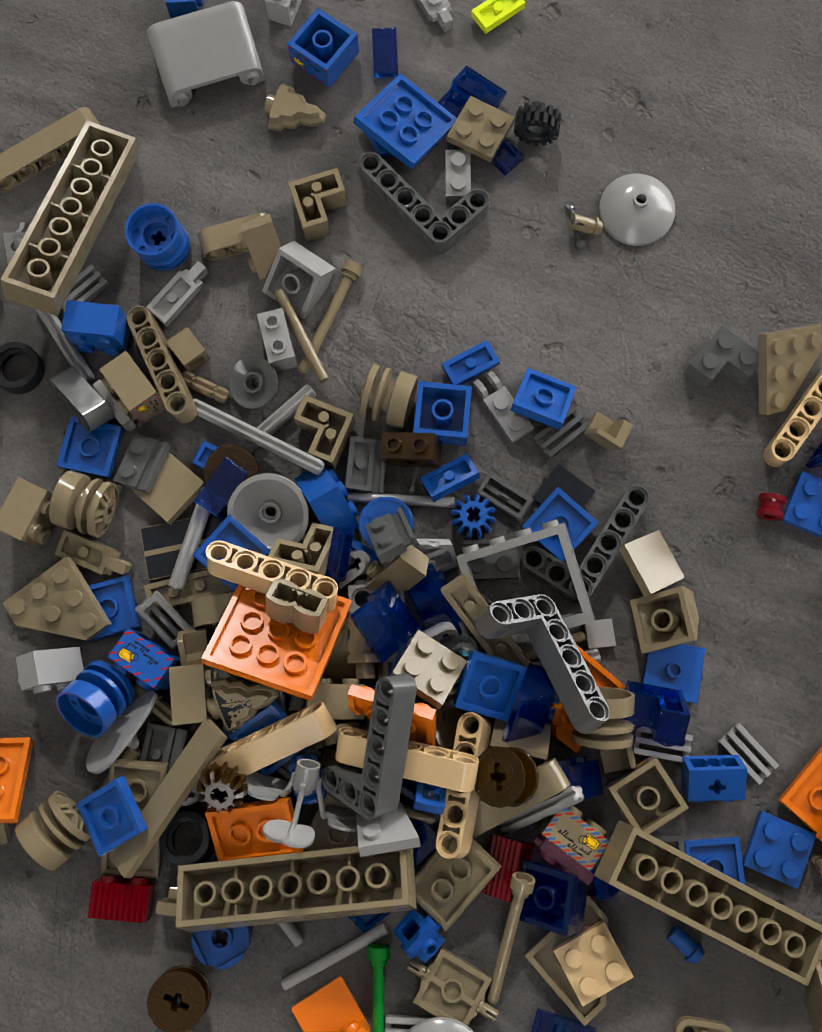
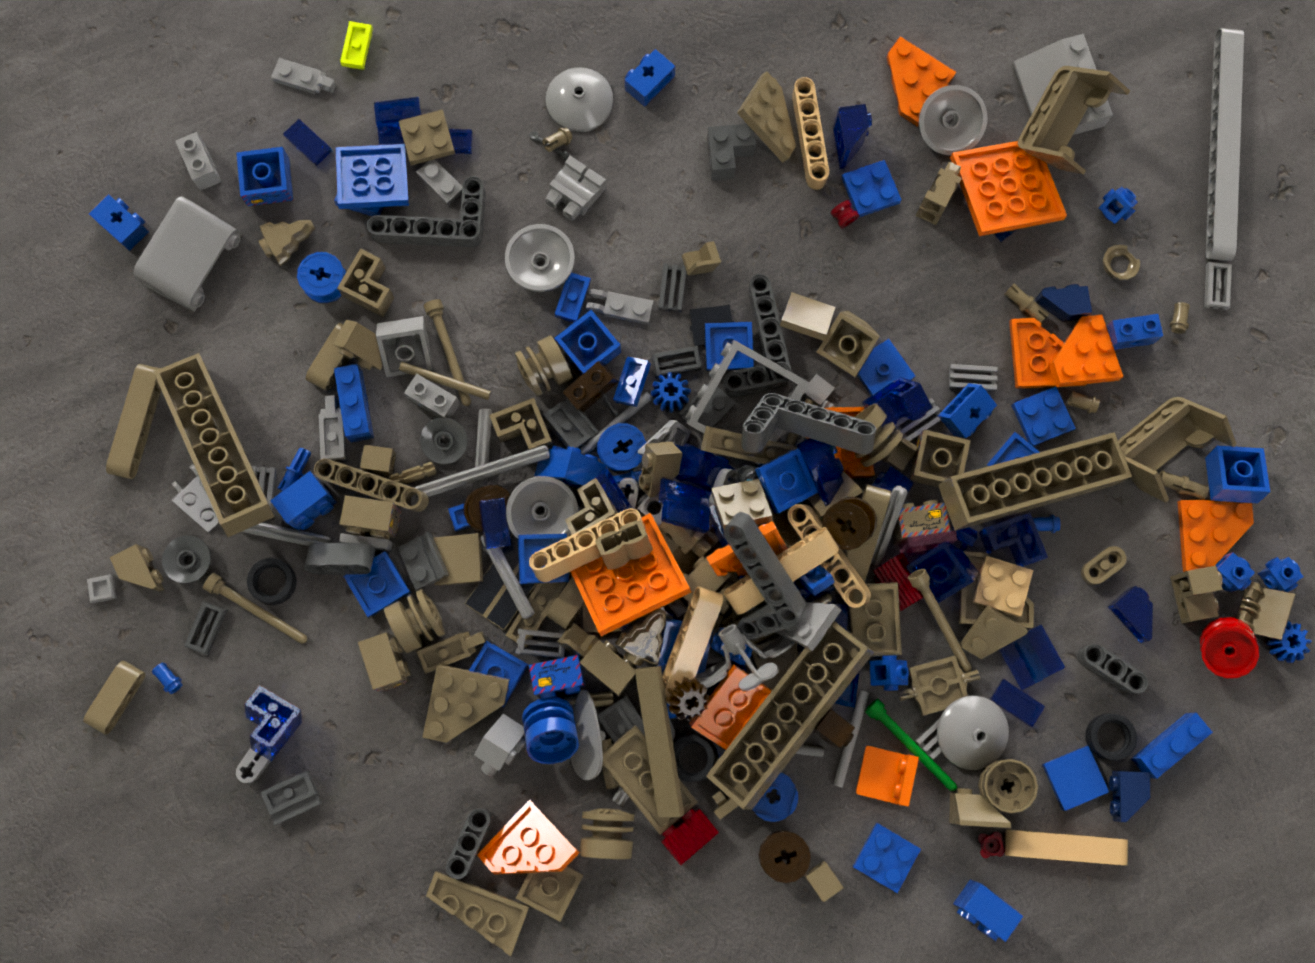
camera: 50 degrees left, 0 degrees up
(111, 816) = (635, 788): blue plate -> none
(123, 296) = (295, 470): none -> blue axle
(157, 237) = (270, 407): blue wheel -> none
(214, 287) = (353, 403): none -> blue brick
(290, 152) = (317, 266): none -> blue piece
(322, 939) = (834, 730): none -> dark brown brick
(391, 535) = (636, 448): dark grey plate -> none
(474, 291) = (538, 244): none -> light grey dish
(537, 123) = (462, 100): black tyre -> none
(543, 398) = (641, 276): blue plate -> none
(543, 993) = (991, 633): none -> dark tan wing
(561, 277) = (575, 188): none -> light grey hips
(651, 933) = (1019, 535): none -> clear blue brick
(713, 241) = (642, 85): none -> blue brick

